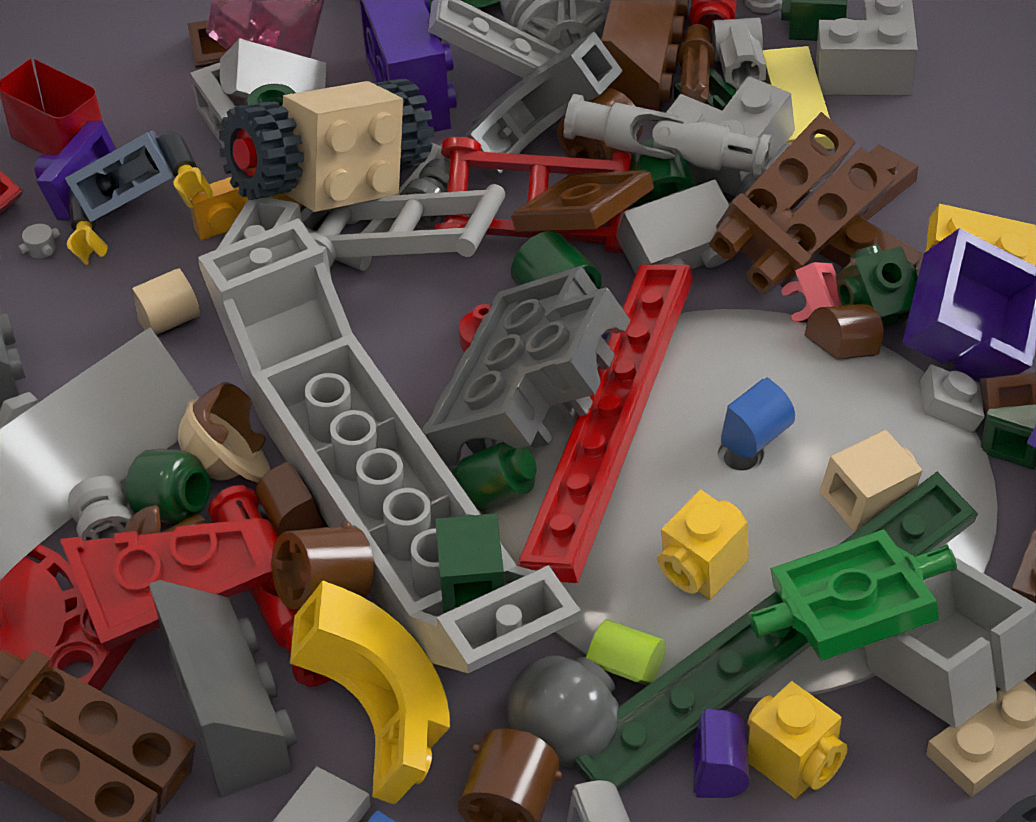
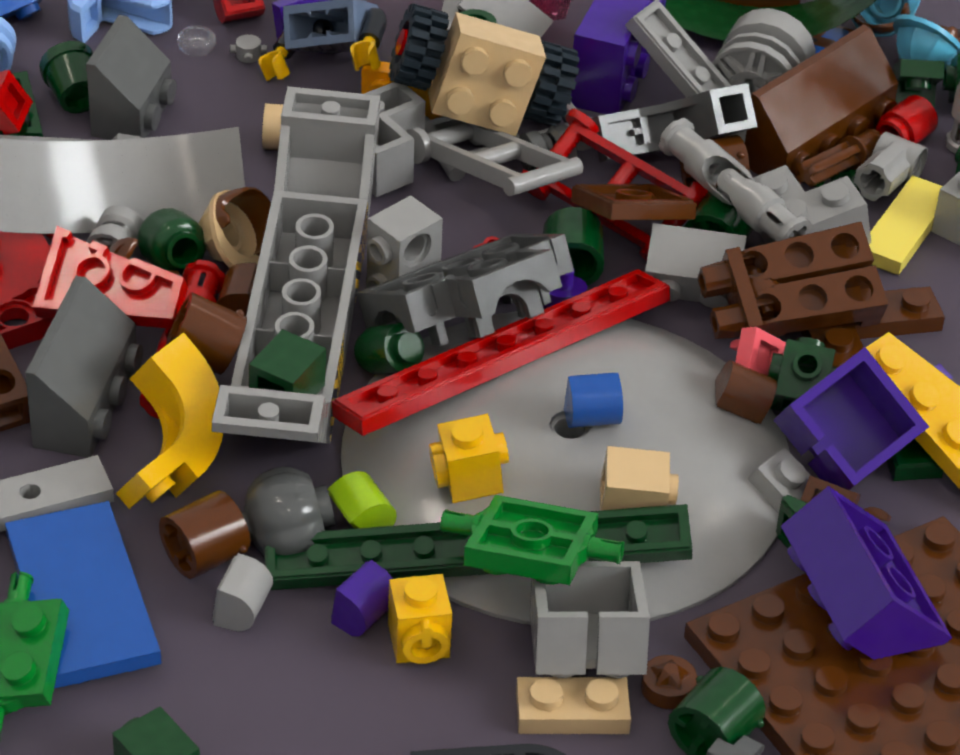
camera: 30 degrees right, 5 degrees down
(420, 359) = (402, 240): none -> light grey brick

